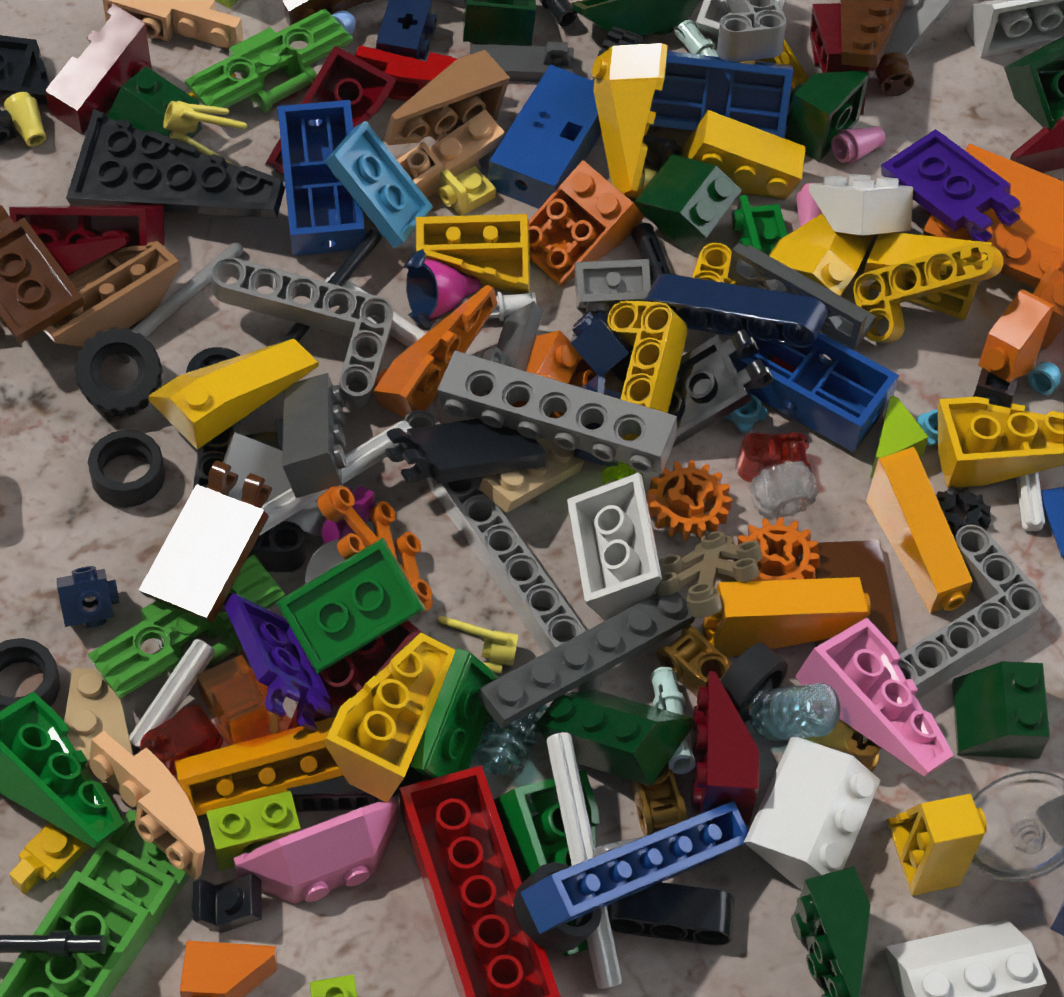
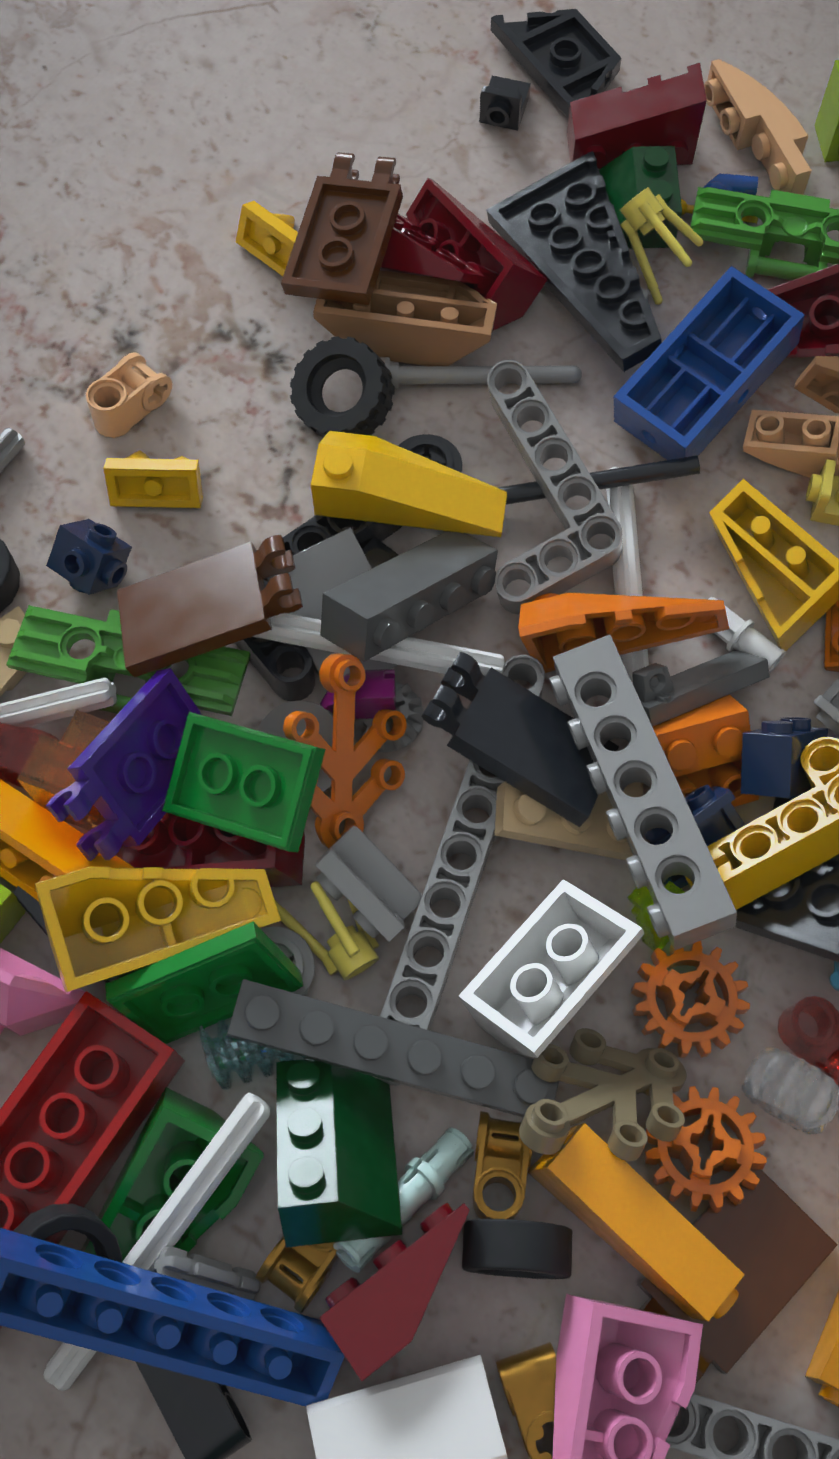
camera: 55 degrees right, 10 degrees up
(26, 118) = (538, 115): light yellow cone -> none
(65, 525) = (153, 482): none -> yellow tile
(125, 443) = (251, 450): black tyre -> none
(196, 64) = (734, 183): none -> blue arm
(378, 184) = (743, 416): dark azure plate -> none
(435, 288) = (698, 564): hat -> none
(470, 603) = (369, 882): none -> light grey bracket
(795, 711) = (515, 1336): clear light blue piece -> none

